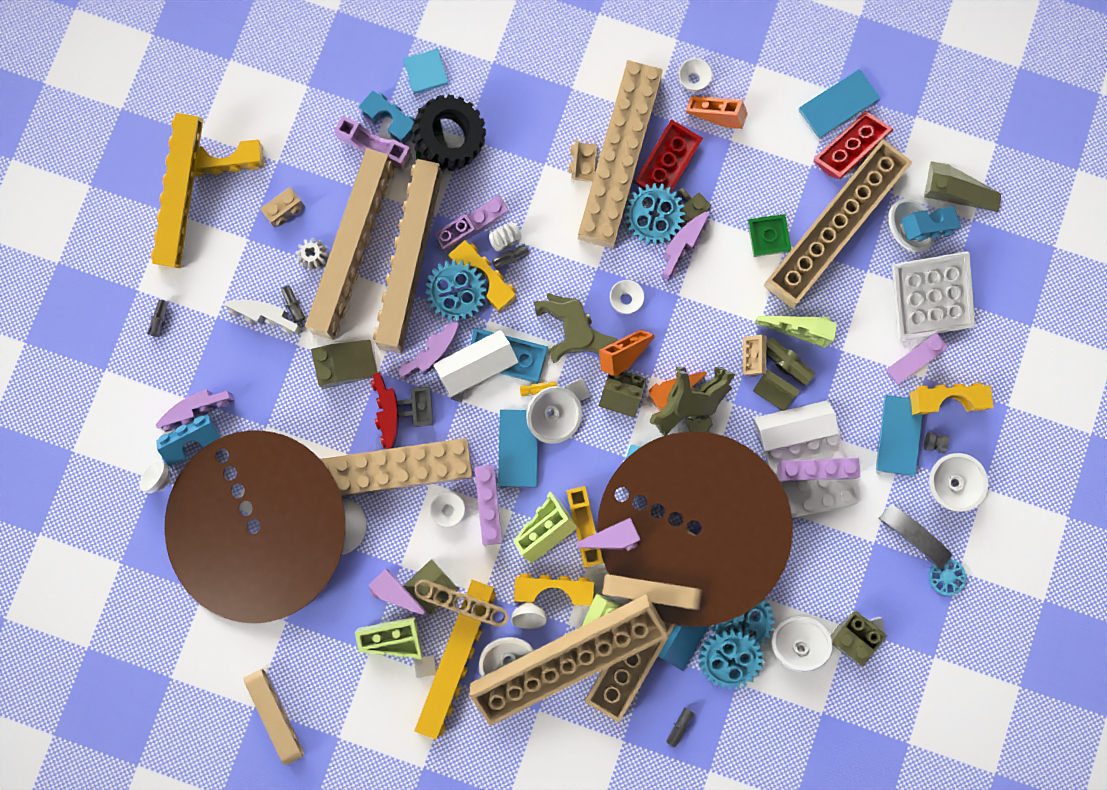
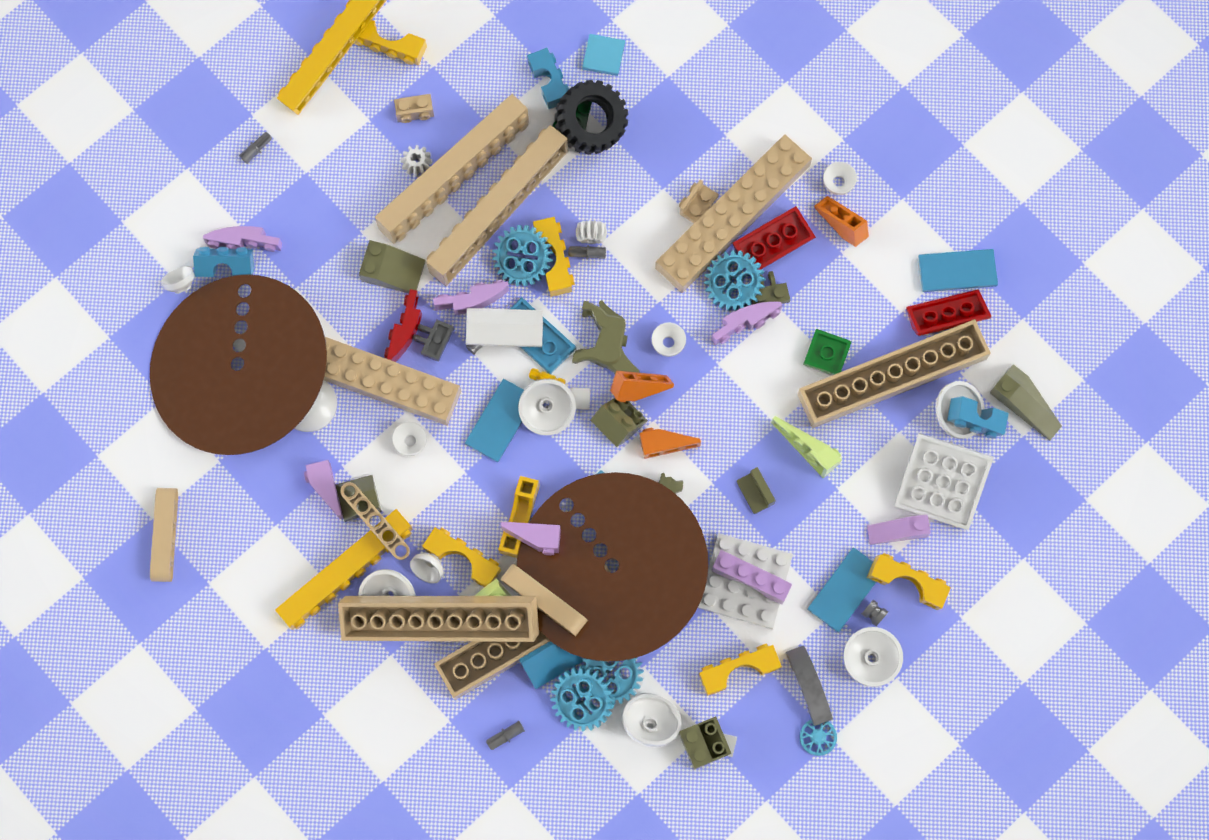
camera: 30 degrees right, 5 degrees down
(257, 311) = (345, 187): white slope -> none
(292, 304) = (376, 195): flat silver axle -> none
(360, 138) = (513, 82): lavender arch -> none
(391, 638) = (301, 522): yellowish green wedge -> none
(425, 666) = (314, 562): white slope -> none
(473, 223) = (569, 206): lavender slope -> none
(488, 505) = (442, 462): lavender arch -> none
(545, 530) = (483, 501): yellowish green wedge -> none
(690, 401) = (672, 458): olive animal -> none
(754, 355) = (752, 449): tan bracket -> none
(789, 362) = (781, 471): olive piece -> none
(796, 426) = (756, 531): white slope -> none
(834, 574) = (763, 660): none -> yellow arch

